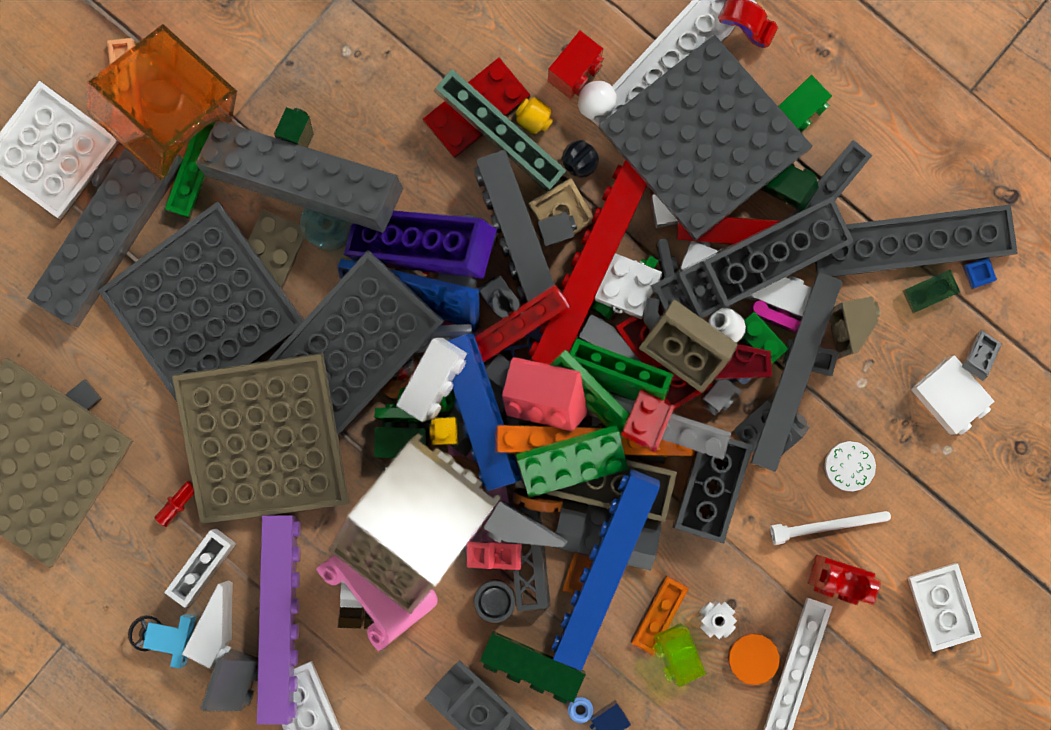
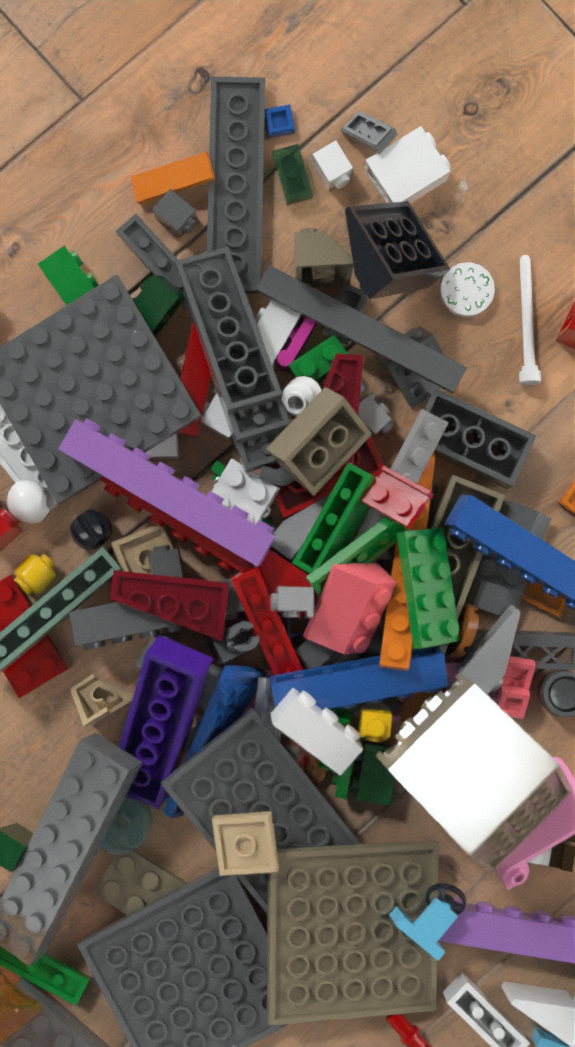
camera: 85 degrees left, 0 degrees up
(280, 506) = (434, 919): none -> medium azure piece
(326, 331) = (245, 843): none -> tan plate
(430, 187) = (98, 699): none -> tan slope
(529, 245) = (185, 601): none -> dark red wing
(542, 342) = (293, 601): none -> light grey brick
(622, 220) = (167, 492): none -> medium lavender brick
(667, 263) = (220, 451): dark grey plate -> none
(873, 388) = (392, 249): none -> black slope
(877, 191) = (175, 214): none -> dark grey brick
(910, 183) = (174, 176): none -> orange tile
(944, 327) = (332, 166): none -> white brick

